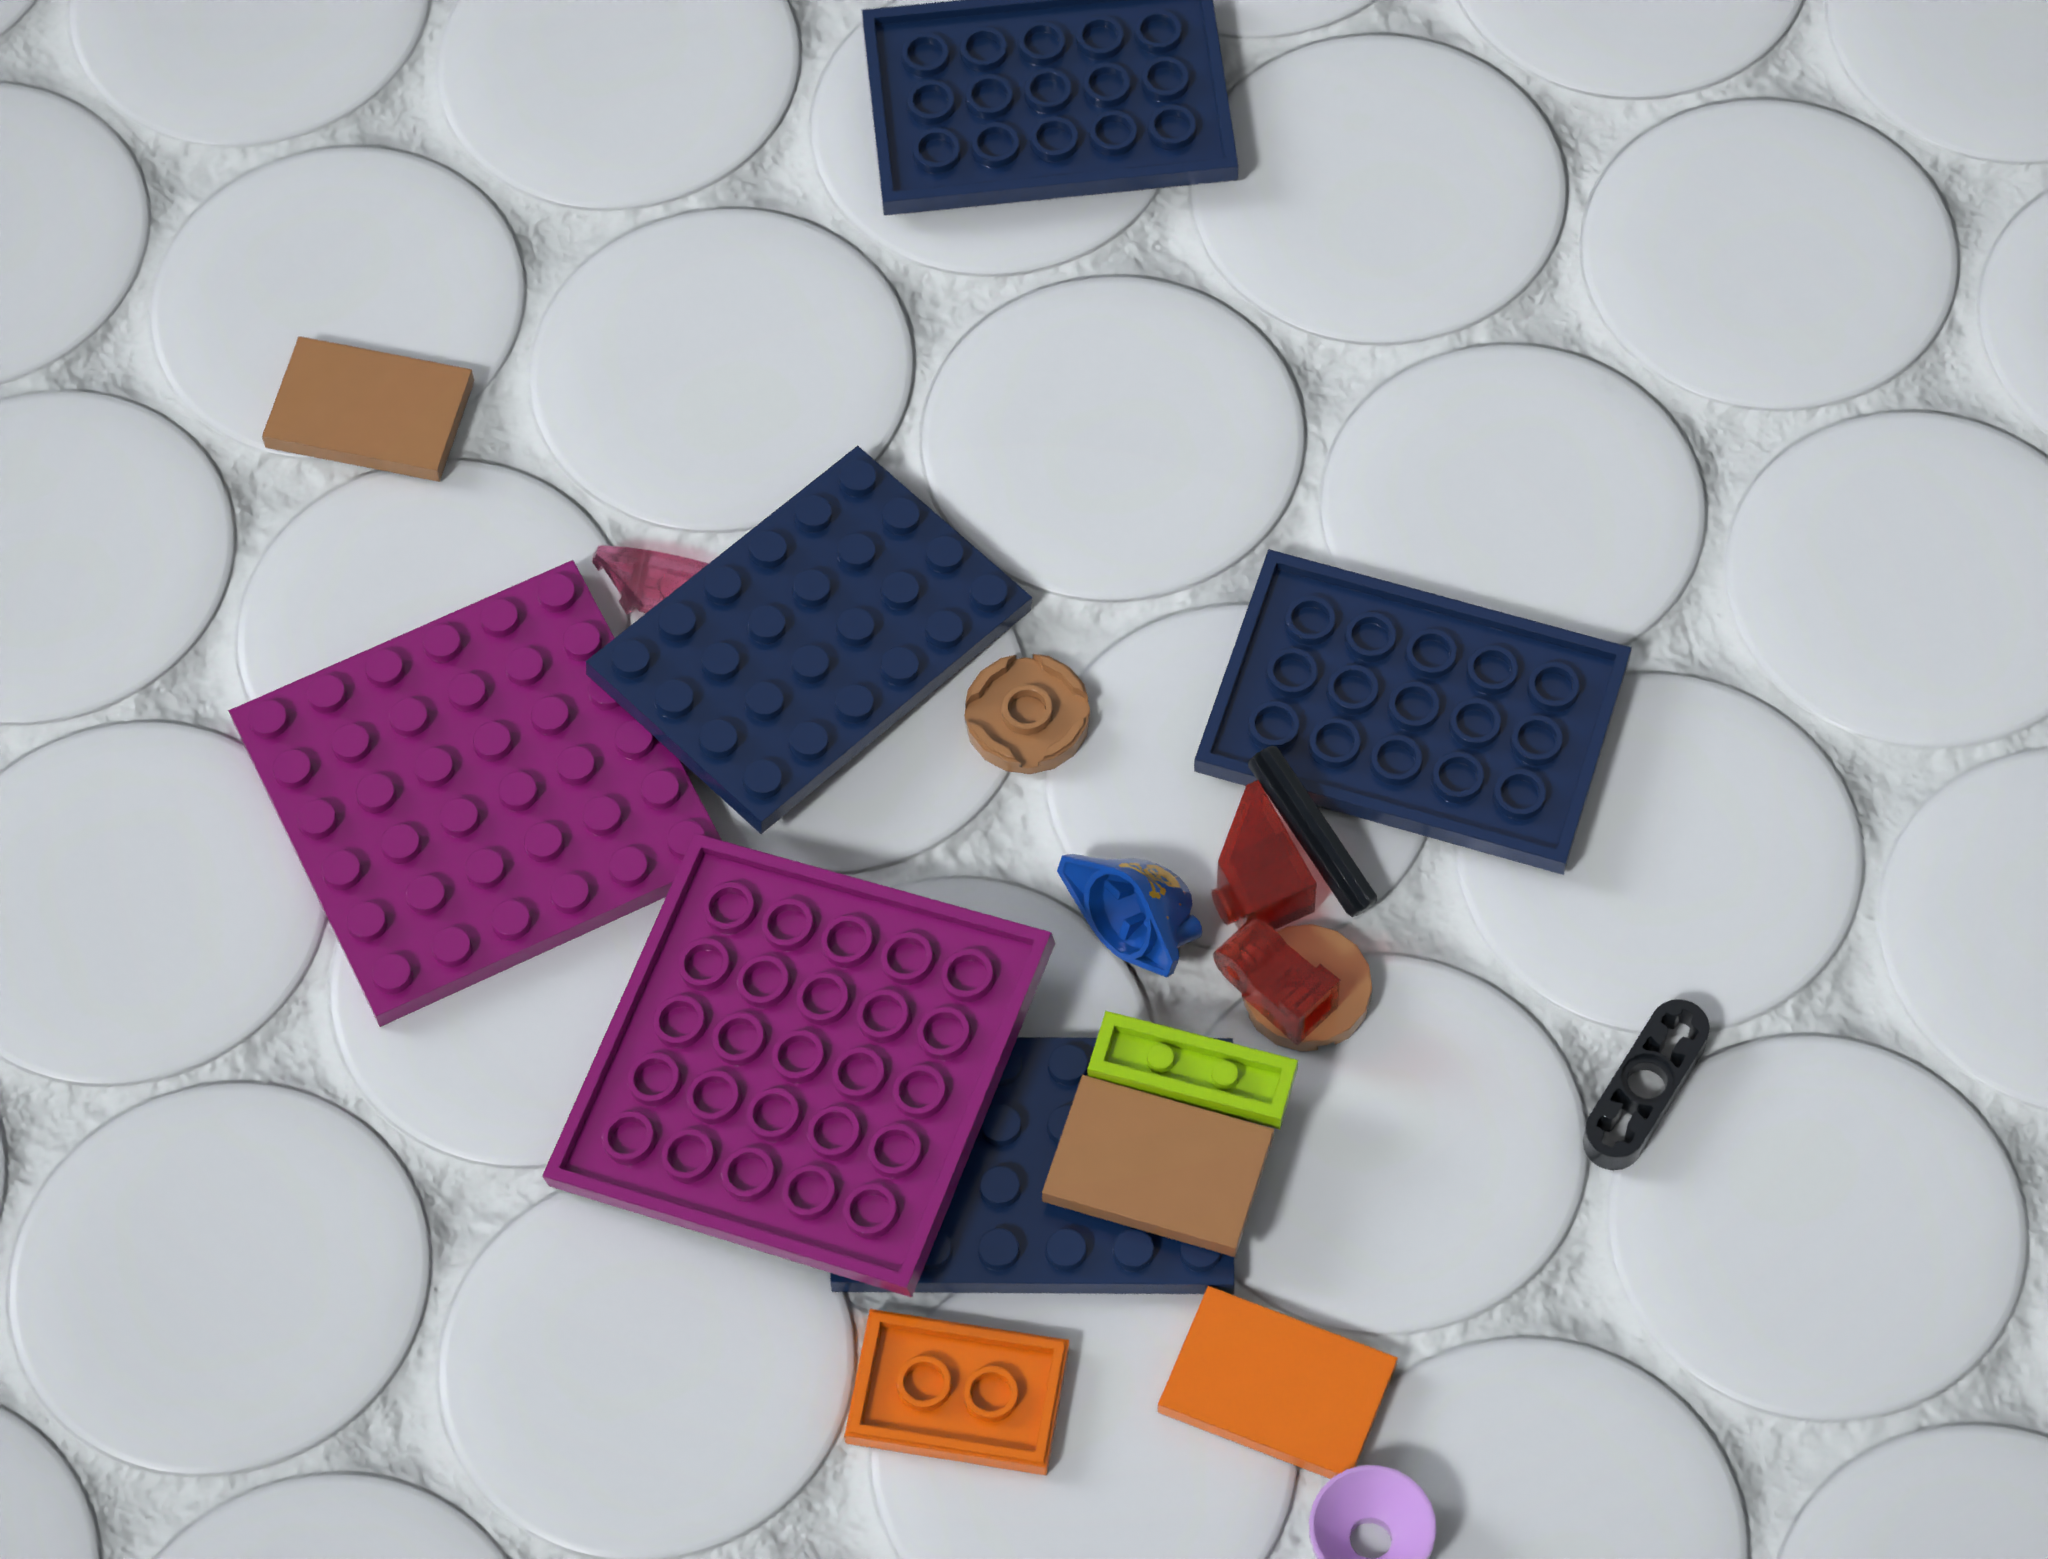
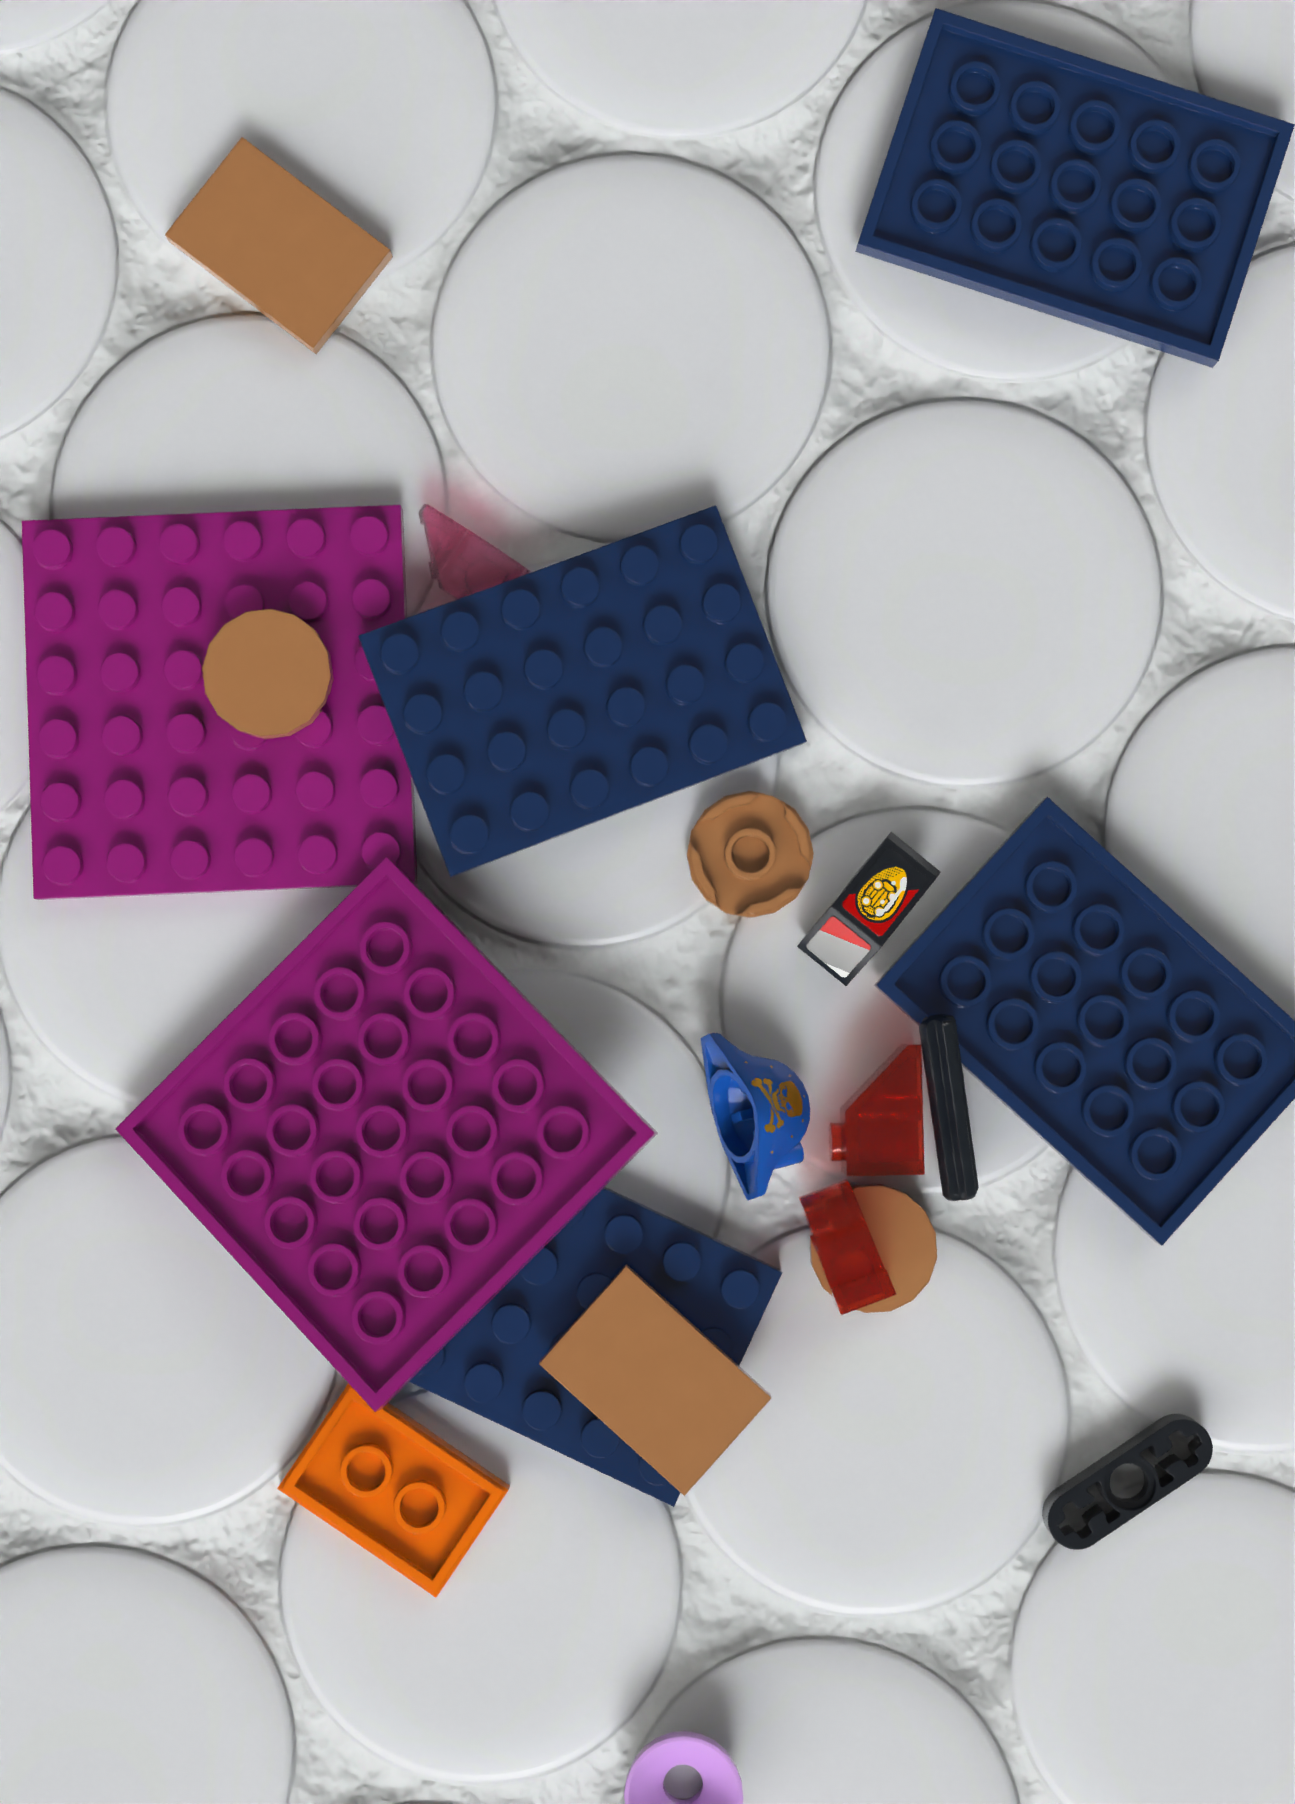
camera: 20 degrees right, 25 degrees up
(516, 730) = (267, 673): none -> medium nougat tile
(1155, 705) = (869, 909): none -> slope
(1193, 1069) = (726, 1307): lime plate -> none
(1277, 1384) = (669, 1610): orange tile -> none

